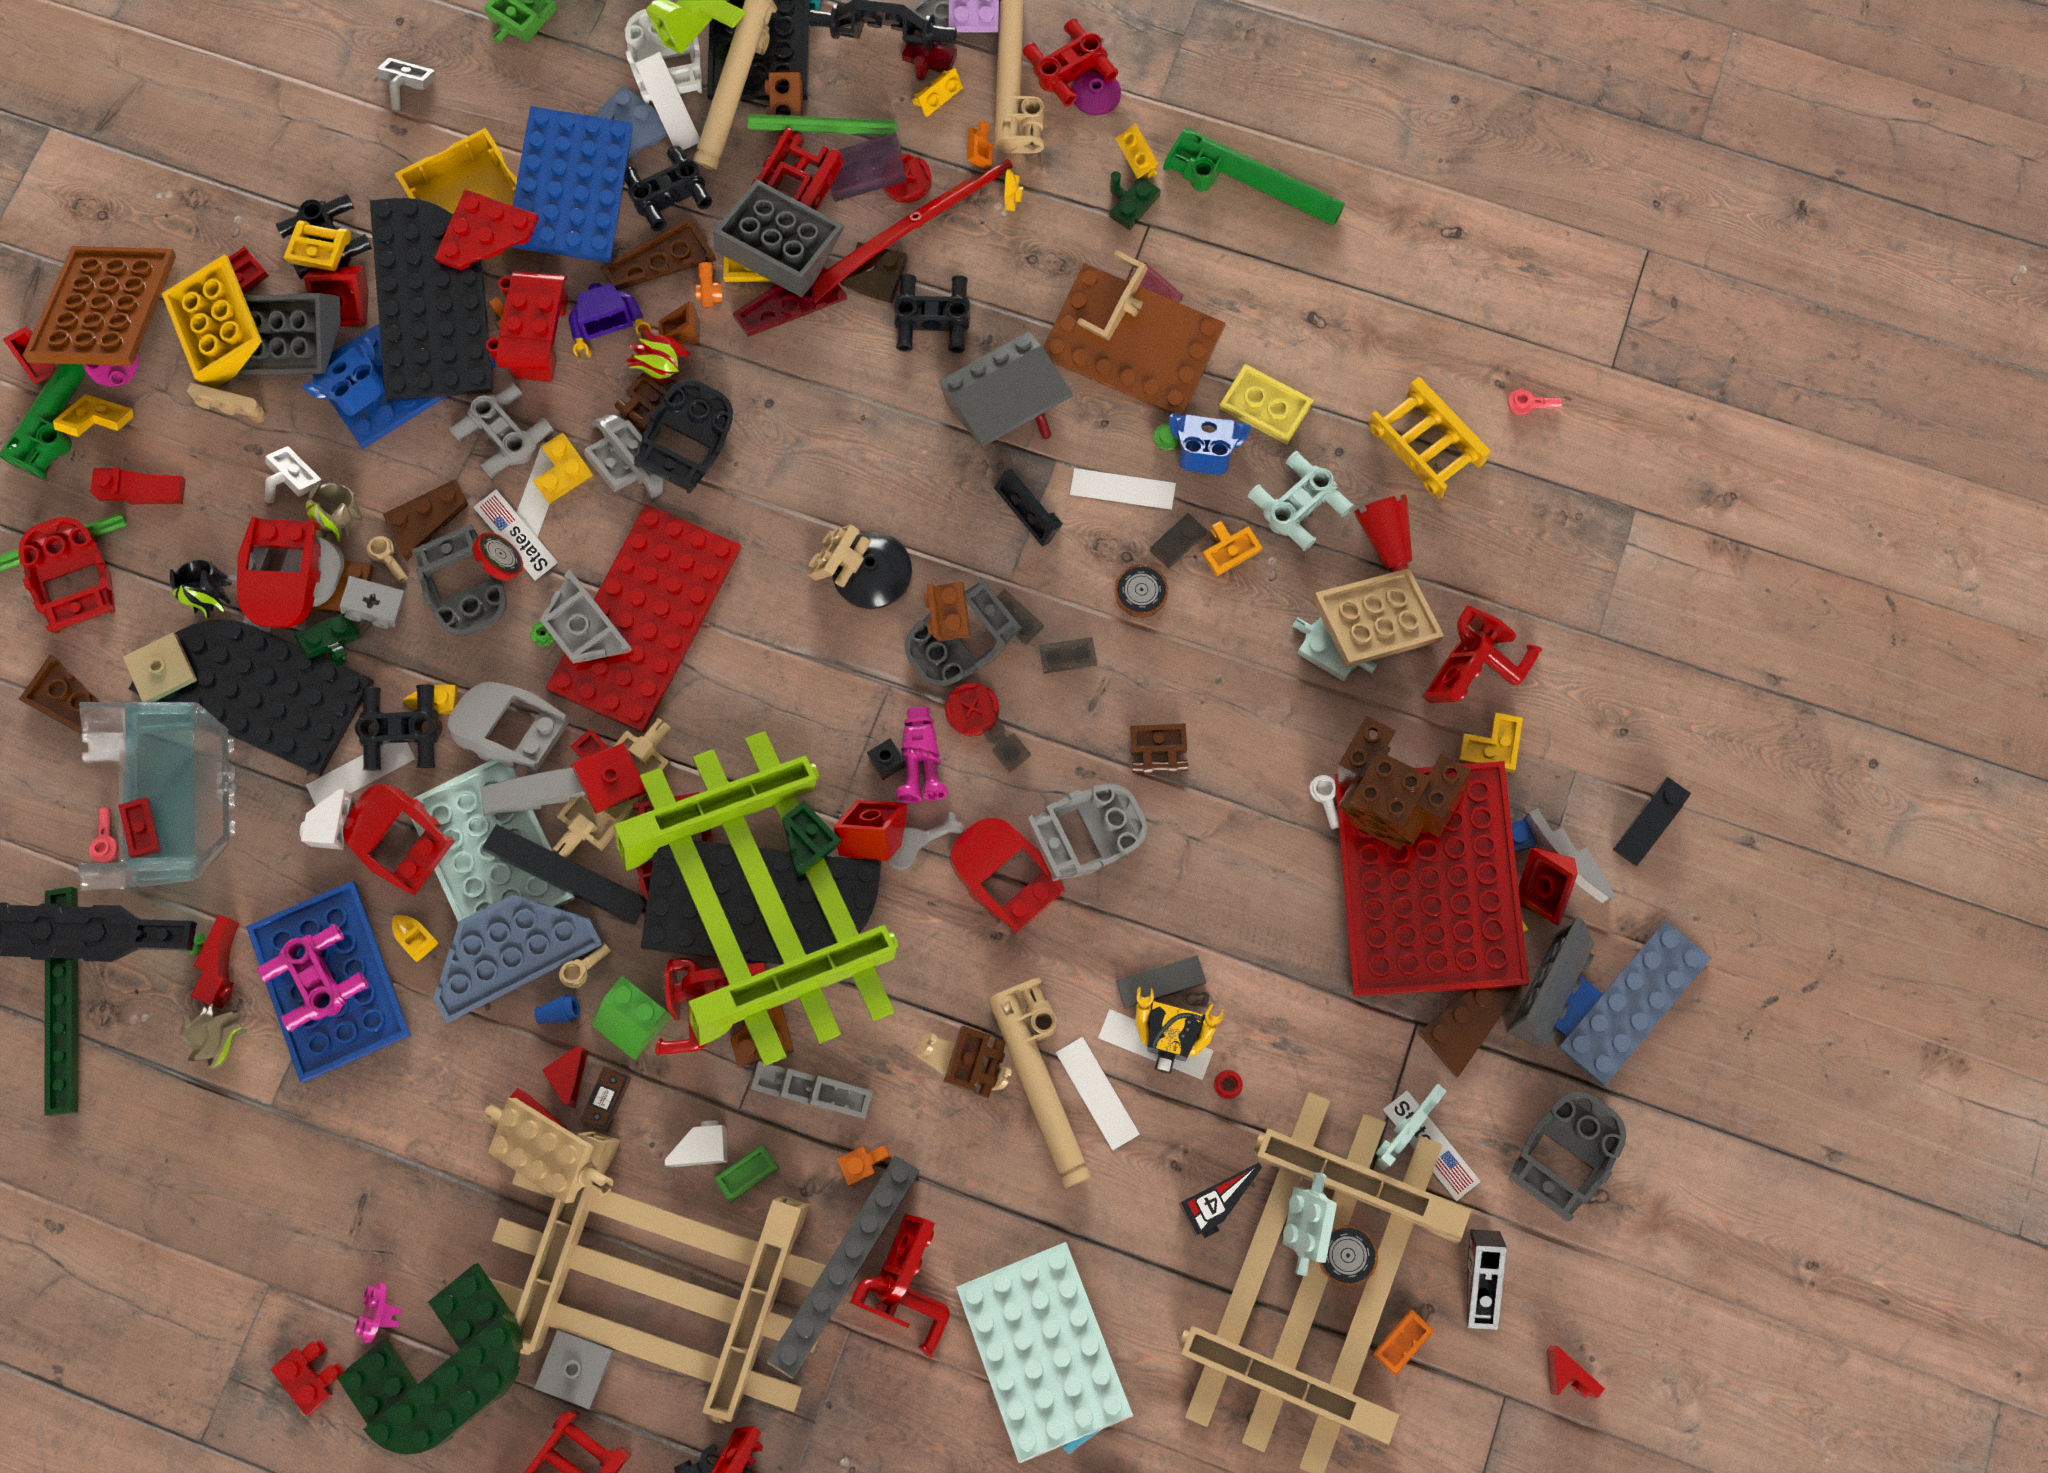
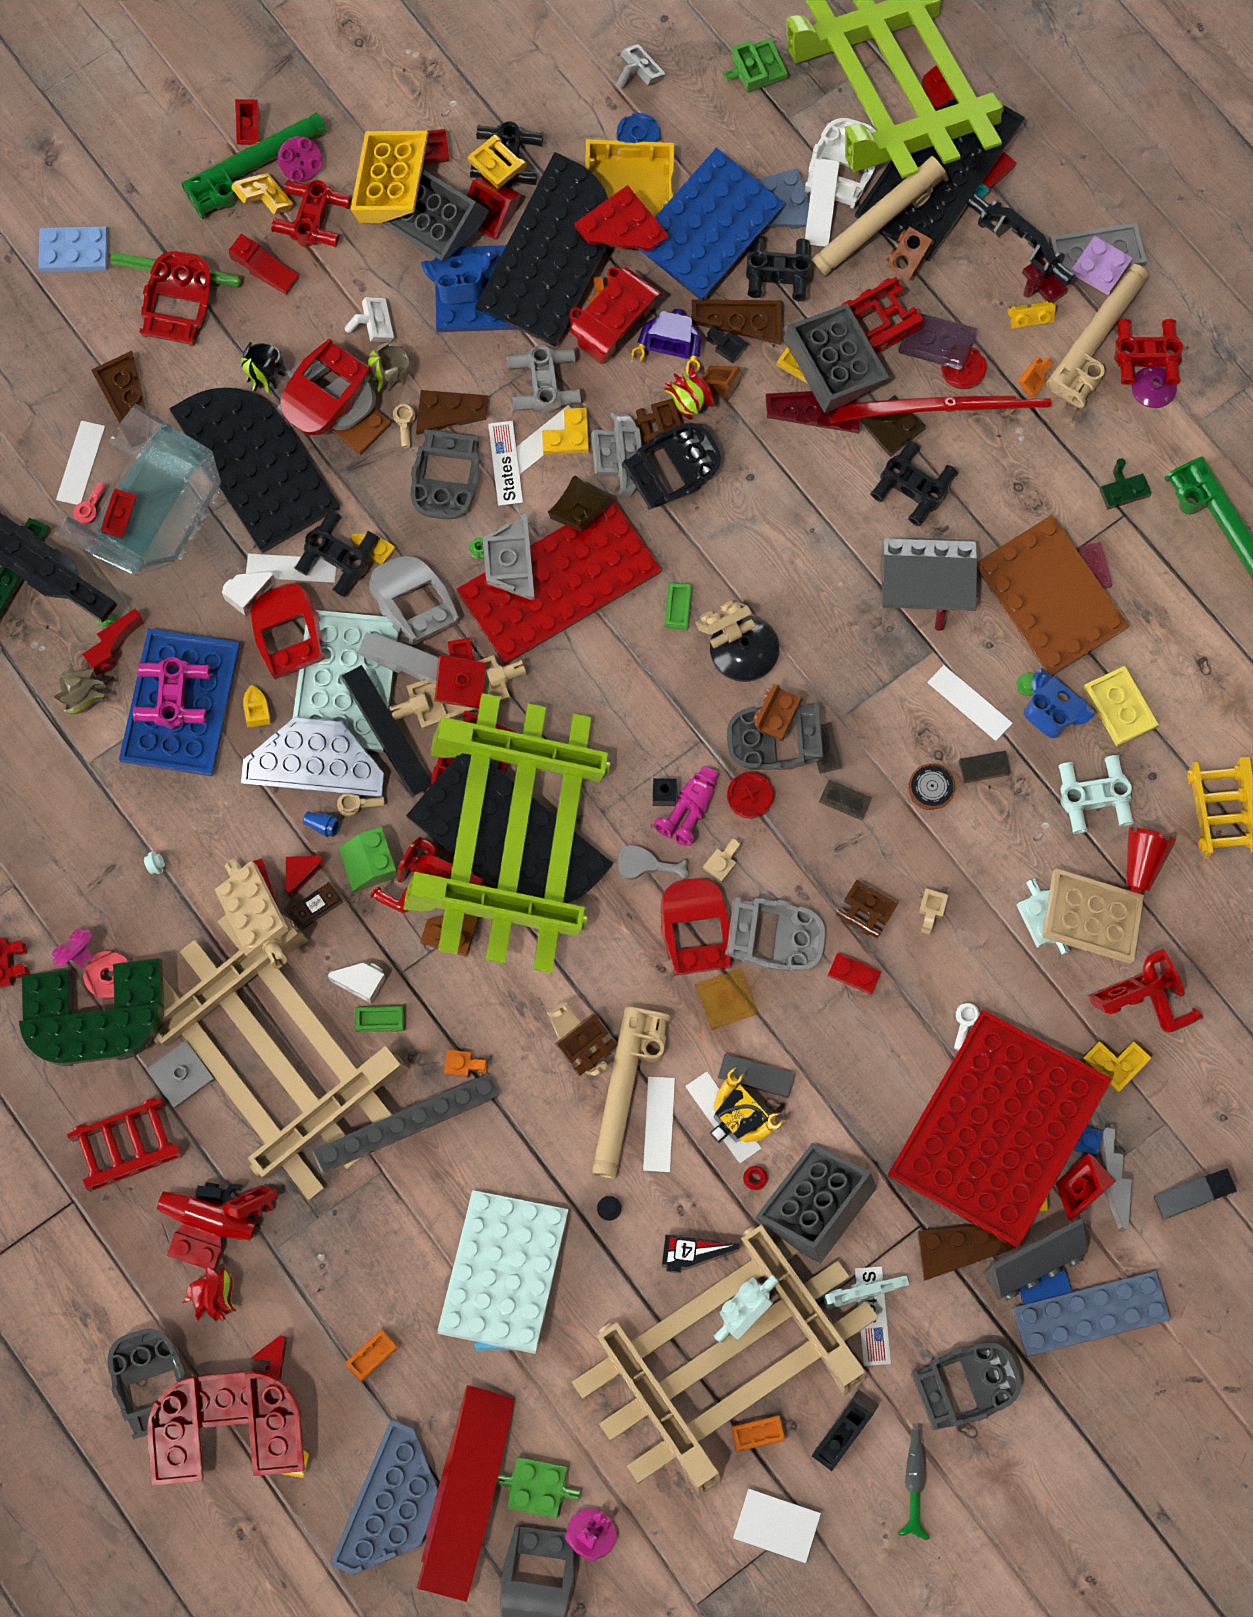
camera: 30 degrees right, 0 degrees up
(67, 801) = (80, 462): none -> white sticker
(100, 306) = (317, 114): dark orange plate -> none
(157, 407) = (311, 213): none -> red piece
(160, 668) = (199, 408): tan plate -> none
(226, 402) = (362, 239): tan plate -> none
(328, 637) = (327, 456): dark green plate -> none
(362, 592) = (371, 439): light grey brick -> none
(406, 1165) = (154, 863): none -> light aqua plate
(413, 1318) = (95, 971): none -> coral plate
(440, 136) = (638, 128): none -> blue tile
(498, 556) = (482, 471): tile -> none
(617, 530) = (579, 505): none -> dark brown plate
(665, 290) = (727, 346): none -> black plate
(709, 290) = (759, 365): orange plate -> none
(779, 569) = (678, 606): none -> bright green tile
(808, 837) = (571, 812): dark green wing -> none
(811, 1090) = (460, 991): light grey slope -> none
(821, 124) = (925, 289): bright green axle -> none
(871, 829) = (620, 835): red slope -> none
(895, 1277) = (428, 1159): red plate -> none
(988, 793) = (721, 863): none -> tan plate
(1009, 749) = (756, 842): clear smoke plate -> none
(1013, 191) = (1036, 426): yellow plate -> none
(1027, 508) = (887, 673): black hinge -> none
(1081, 925) = (725, 999): none -> clear yellow plate
(1105, 1212) = (609, 1208): none -> black plate
(1126, 301) = (1062, 564): tan piece -> none
(1137, 152) = (1152, 453): yellow hinge -> none
(1188, 819) = (854, 973): none -> red plate
(1220, 705) = (932, 907): none -> tan plate
(1230, 549) = (1019, 798): light orange plate -> none
(1305, 1068) = (817, 1202): none -> dark grey slope
(1350, 1256) = (758, 1349): tile -> none
(1391, 797) = (1005, 1049): reddish brown piece -> none
(1483, 1423) = (776, 1526): none -> white tile
(1564, 1369) = (860, 1527): red slope -> none
(1586, 1287) = (915, 1484): none -> dark grey piece

